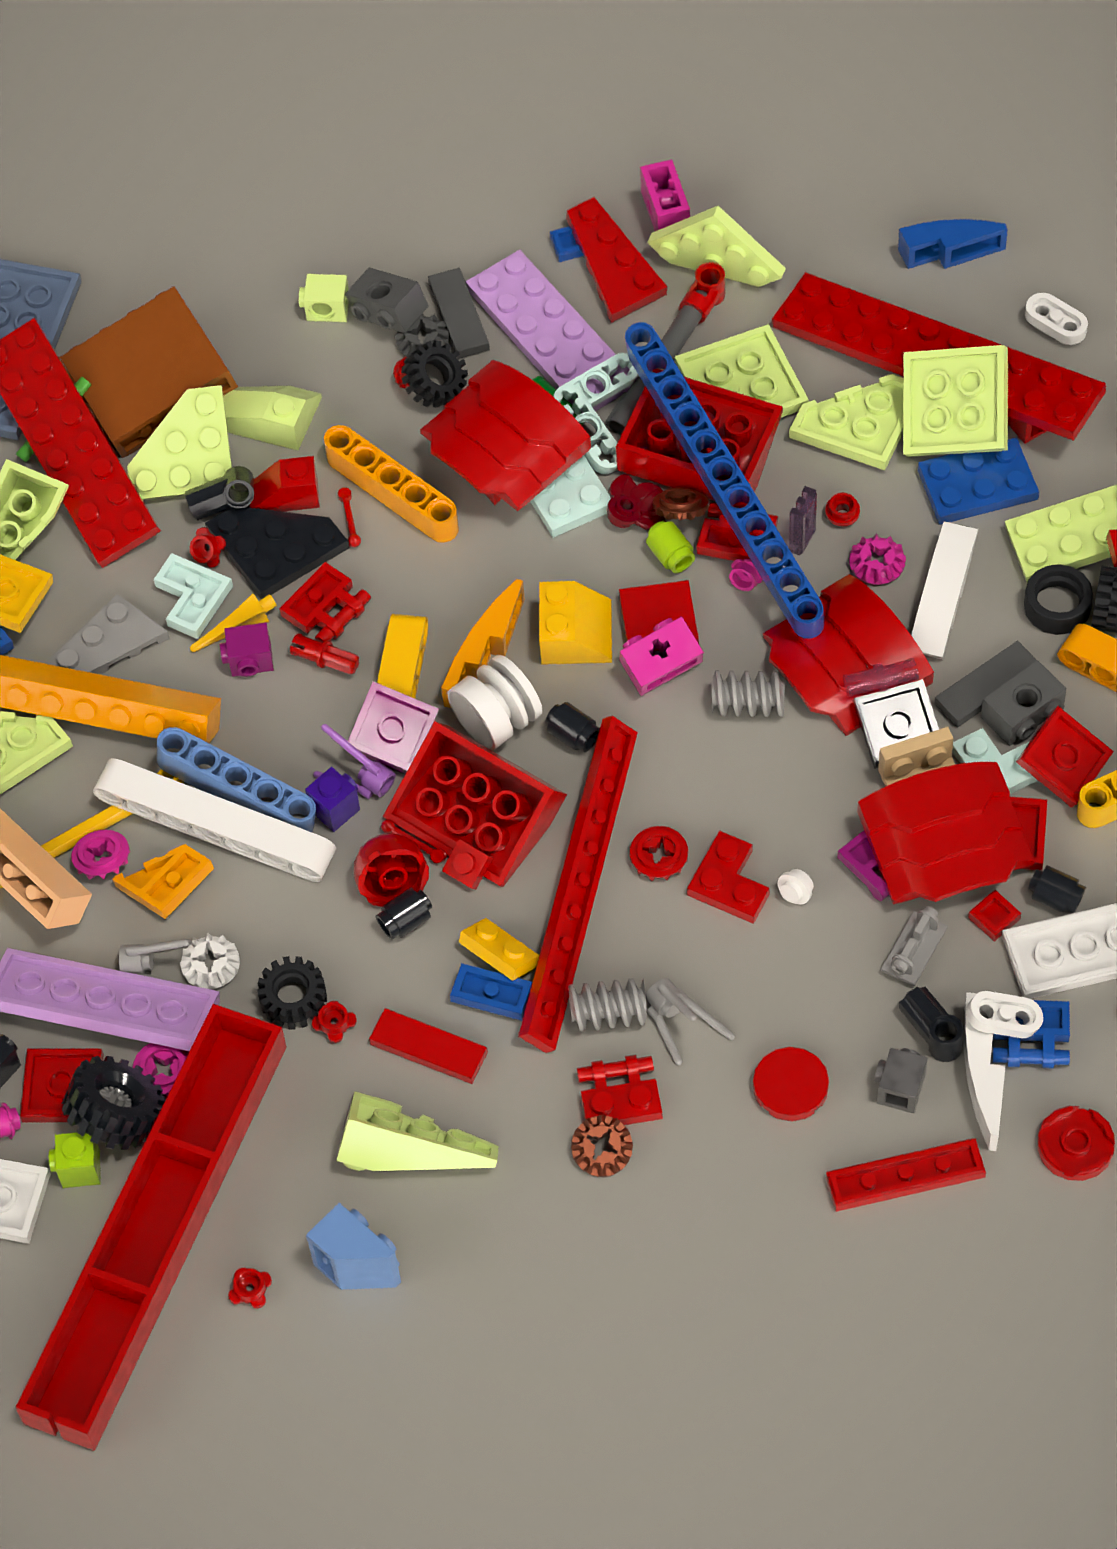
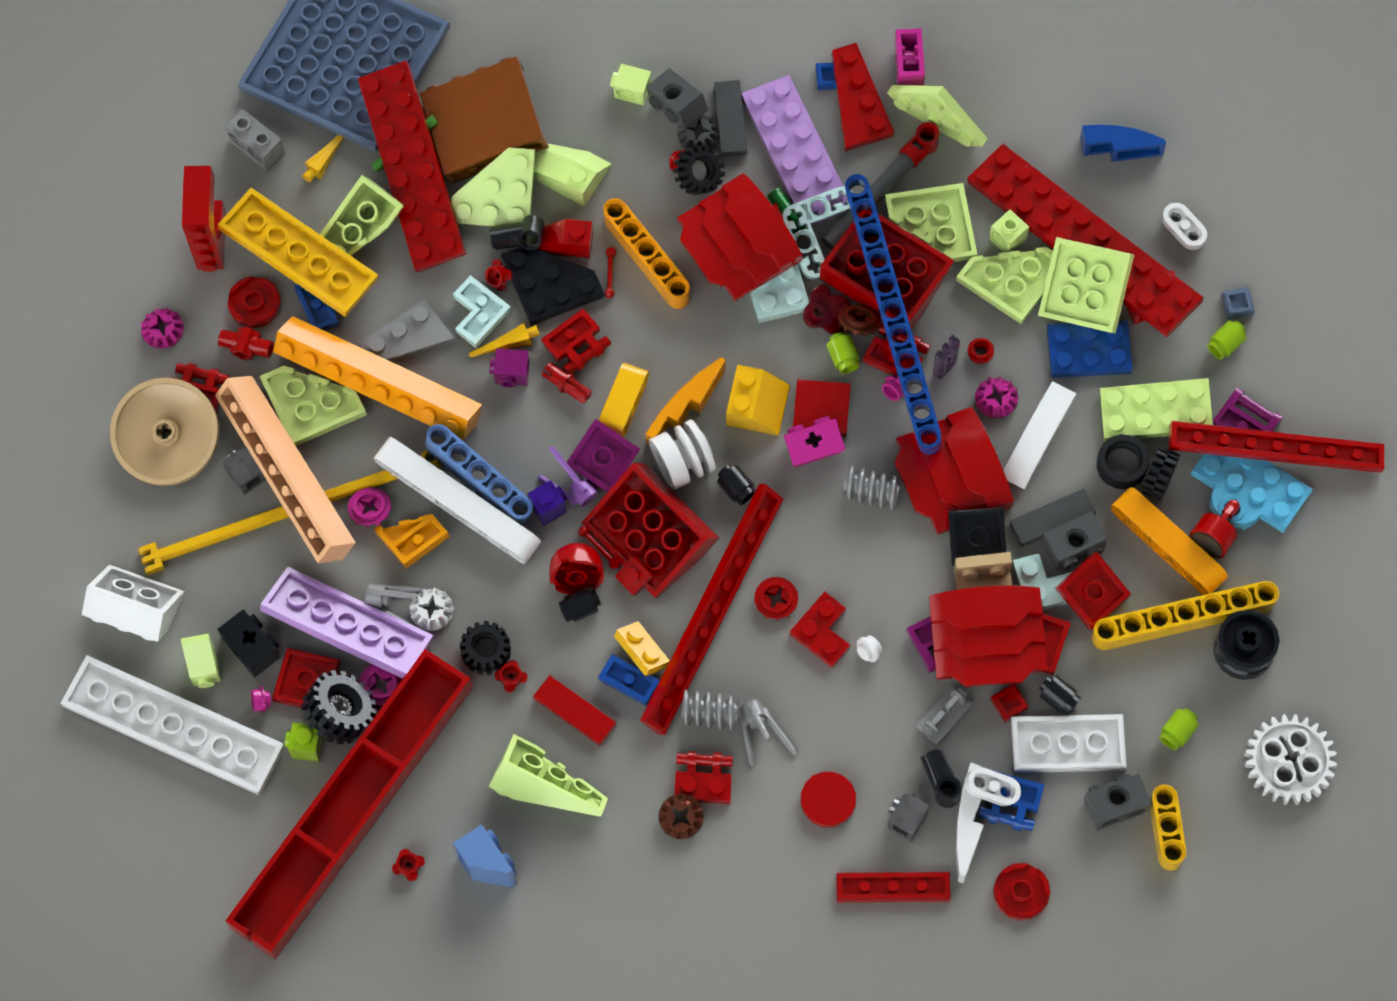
camera: 10 degrees right, 10 degrees up
(841, 366) = (1009, 232): none -> yellowish green brick
(880, 677) = (971, 499): clear pink pin -> none

